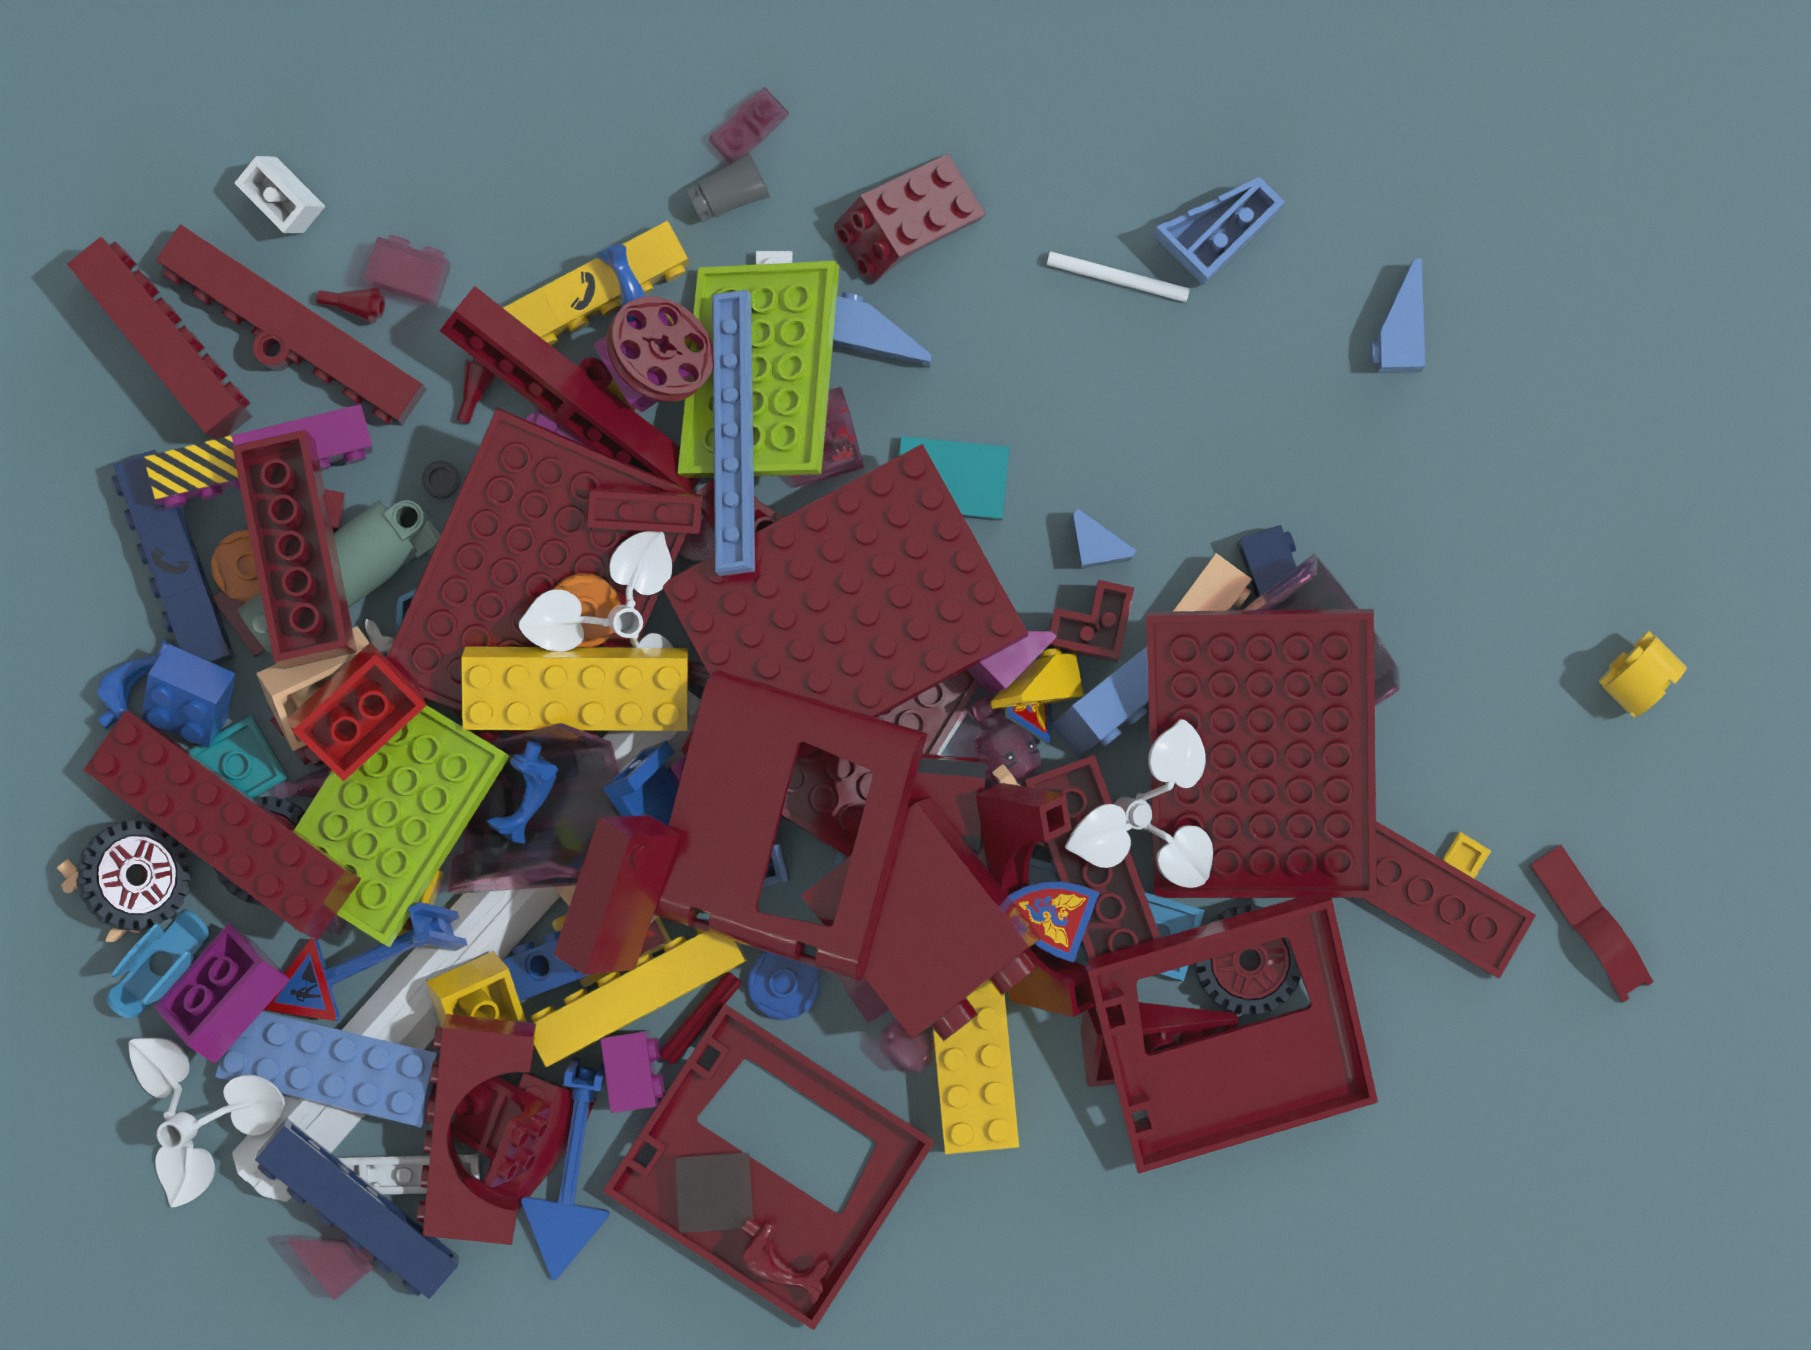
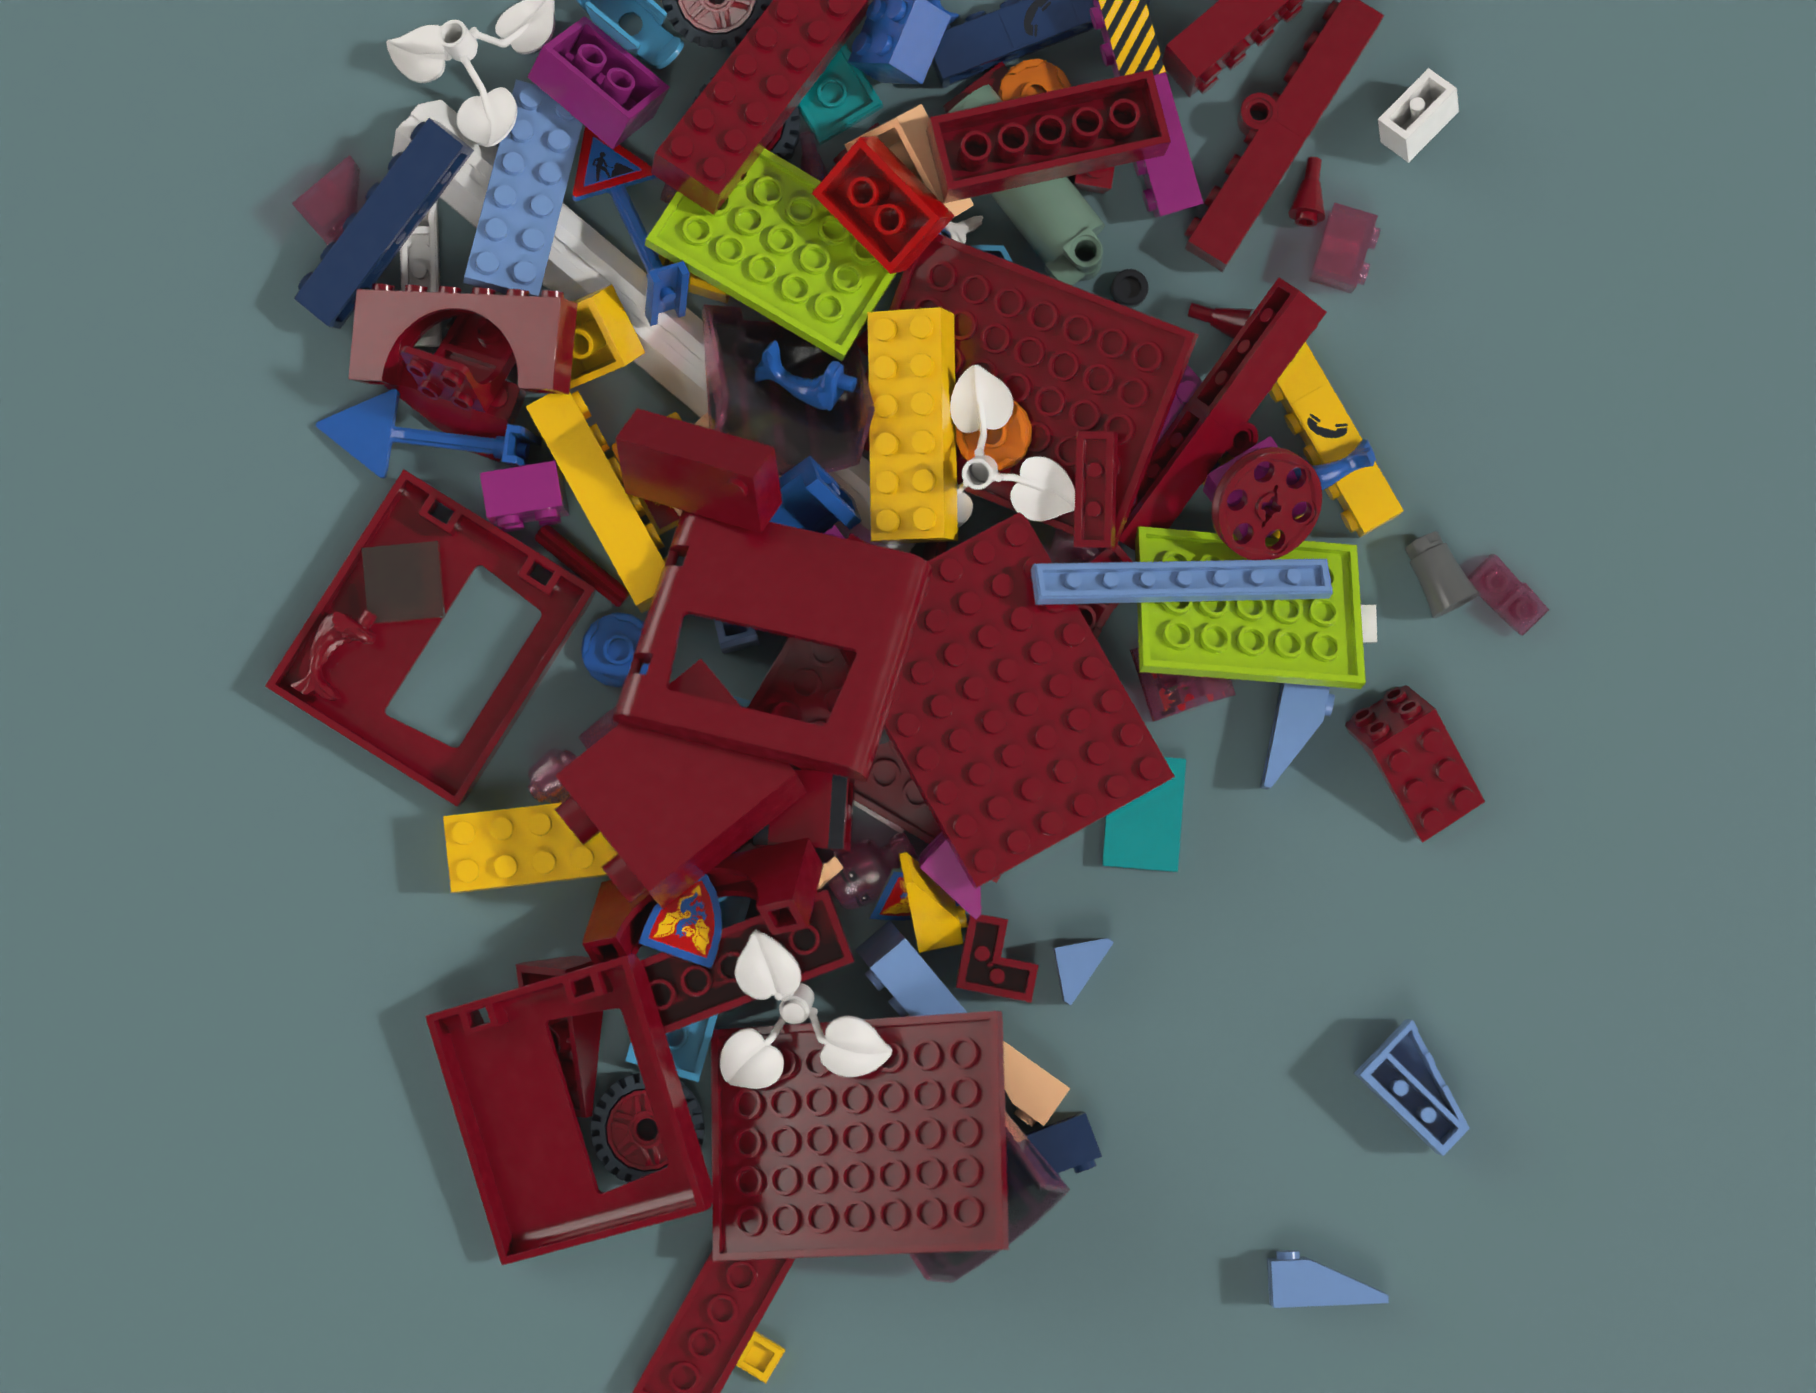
camera: 90 degrees right, 0 degrees up
(530, 973) = (626, 389): blue brick -> none
(1118, 276) = (1360, 982): white bar -> none

